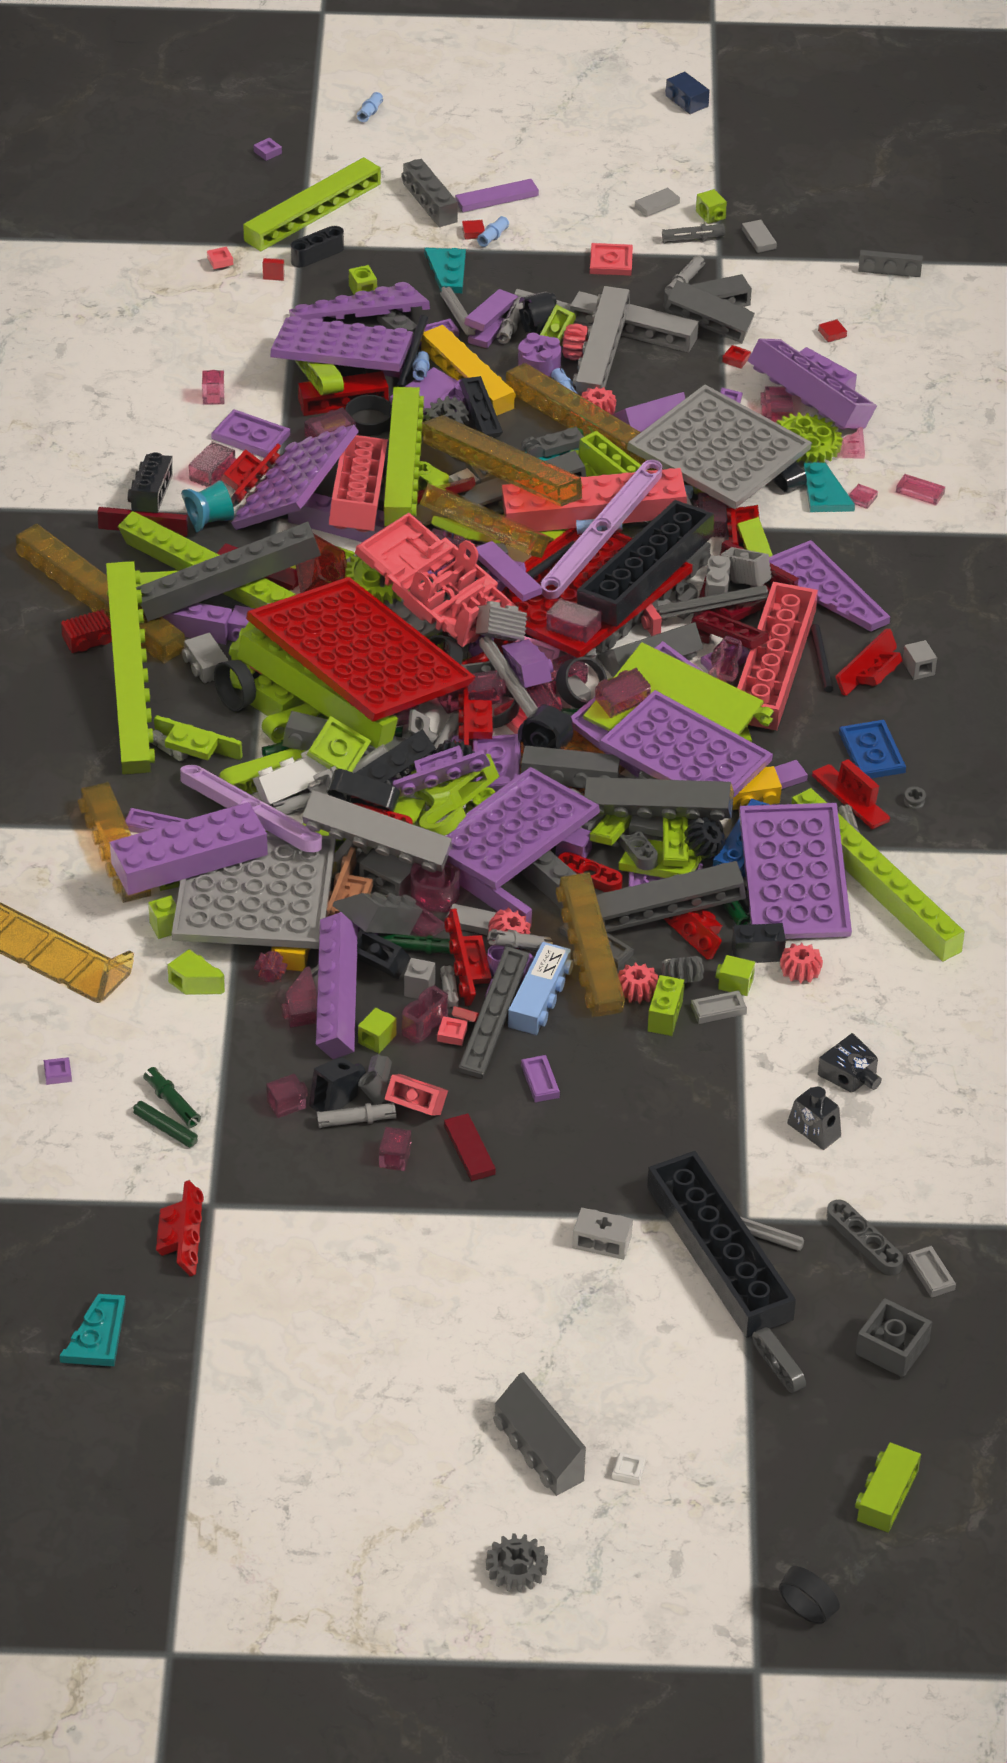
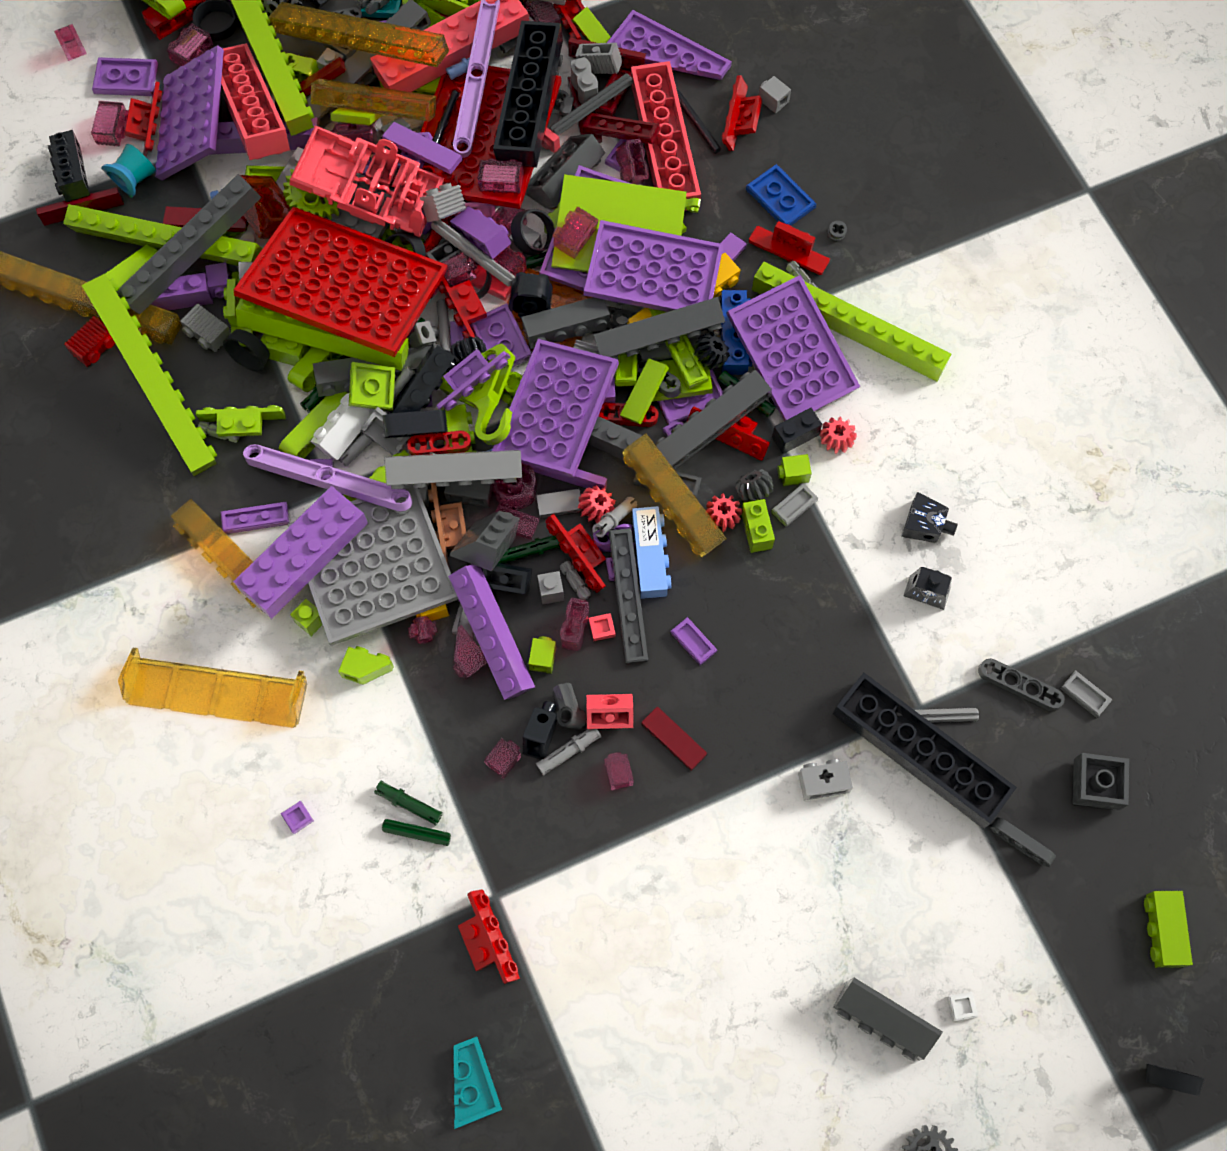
camera: 25 degrees left, 25 degrees up
(465, 1014) = (606, 605): tile -> none
(615, 851) = (644, 391): none -> lime tile

